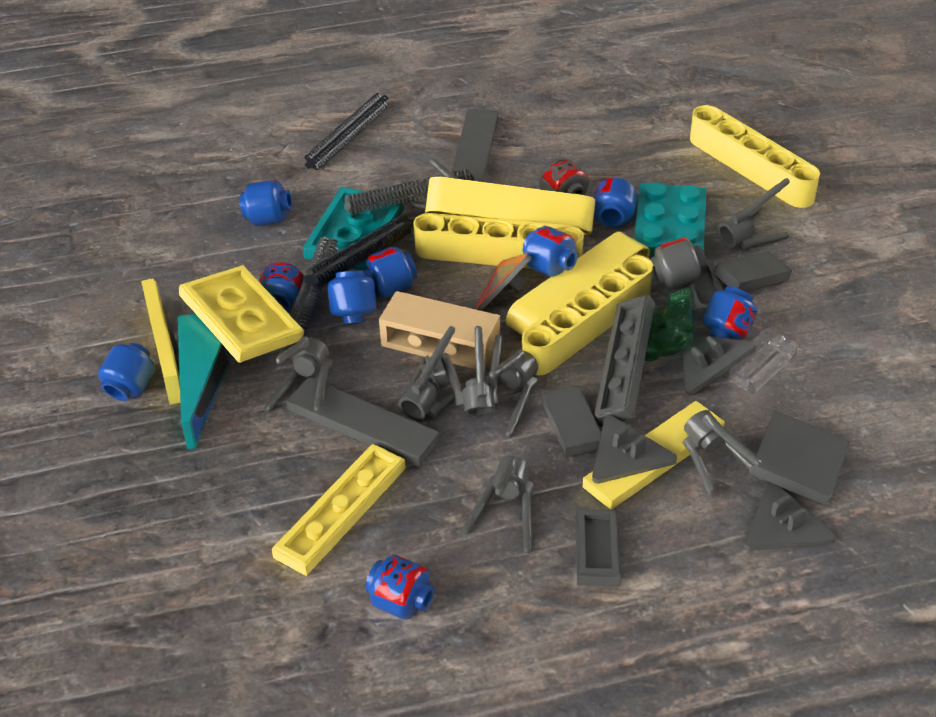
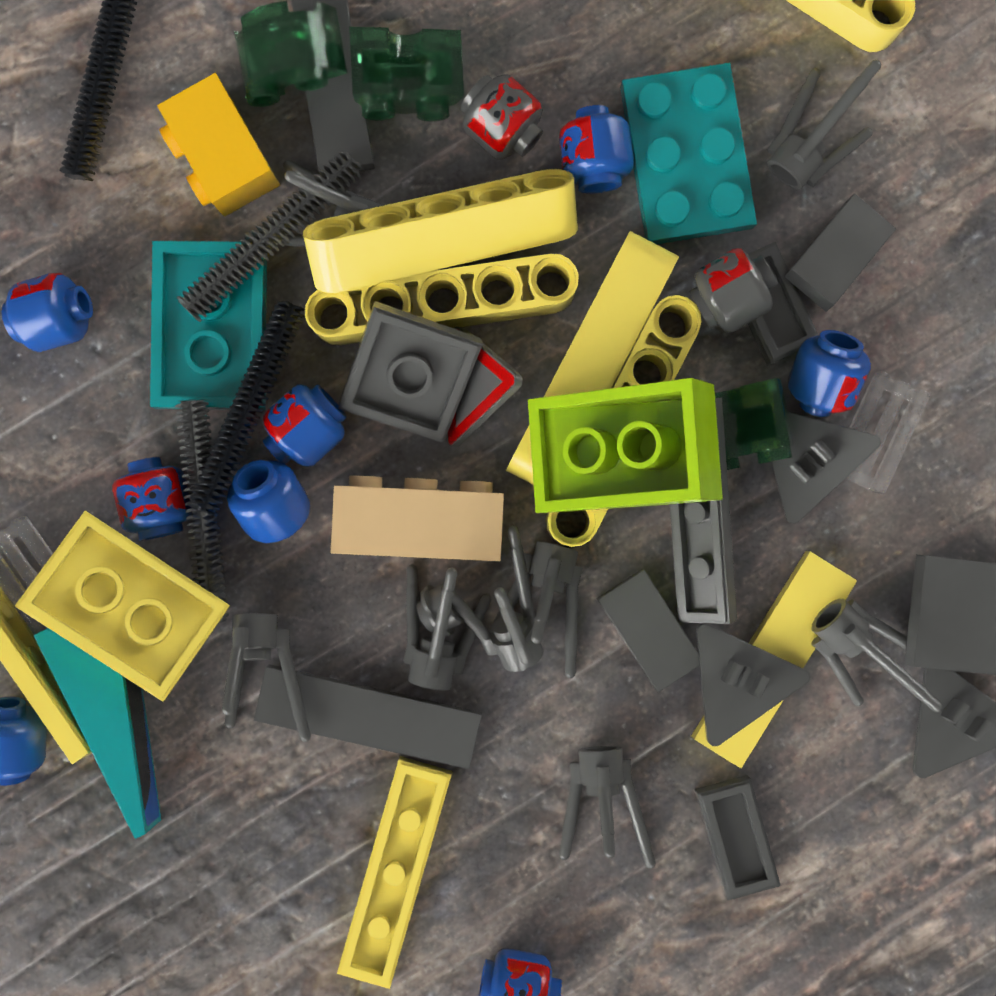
camera: 20 degrees left, 45 degrees up
(395, 158) = (217, 145): none -> yellow brick
(452, 128) = (288, 49): none -> clear green cylinder
(464, 260) = (409, 372): none -> dark grey tile
(513, 157) = (406, 72): none -> clear green cylinder
(550, 251) = (541, 340): blue head -> none
(587, 297) = (625, 447): none -> lime slope

